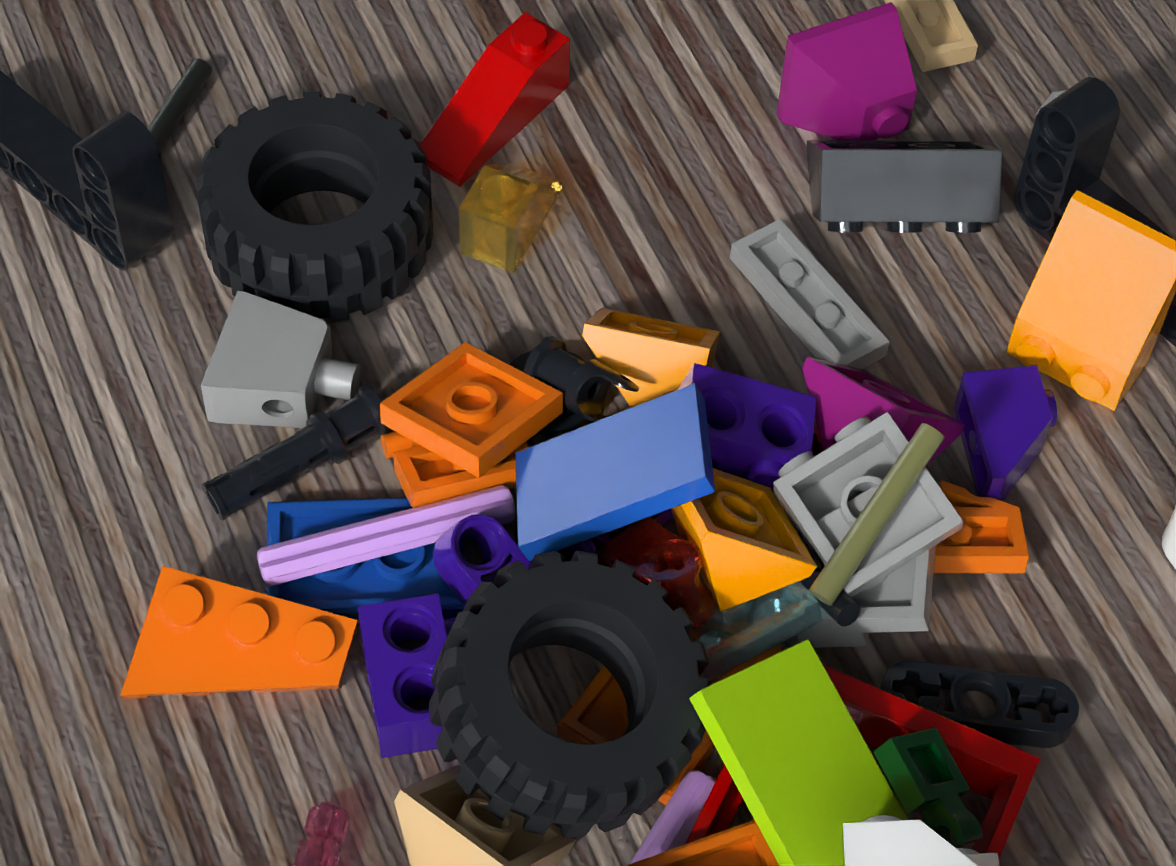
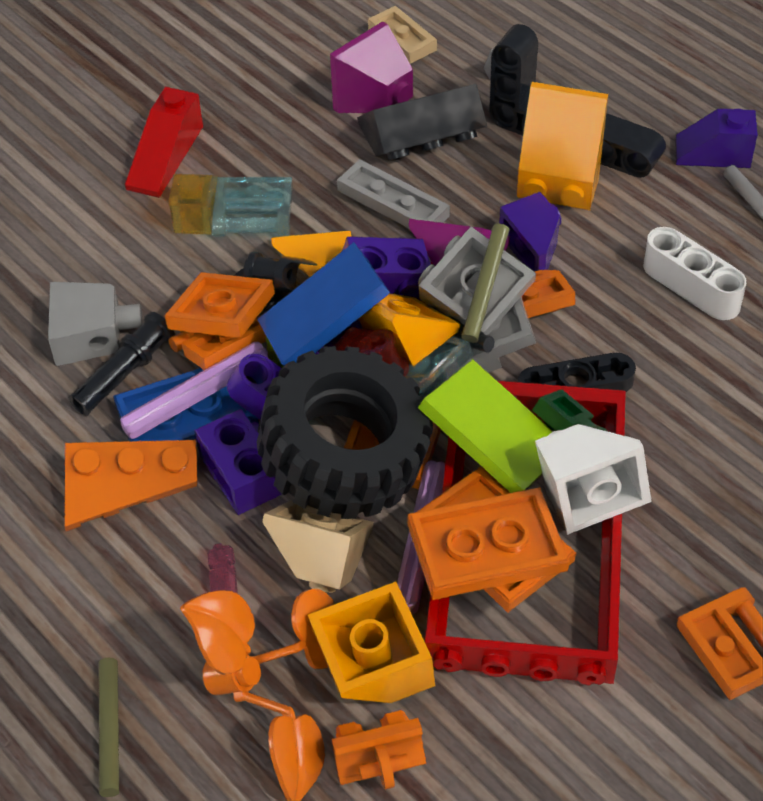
camera: 15 degrees left, 5 degrees down
(306, 149) = (74, 193): black tyre -> none
(594, 232) = (252, 196): none -> clear light blue plate

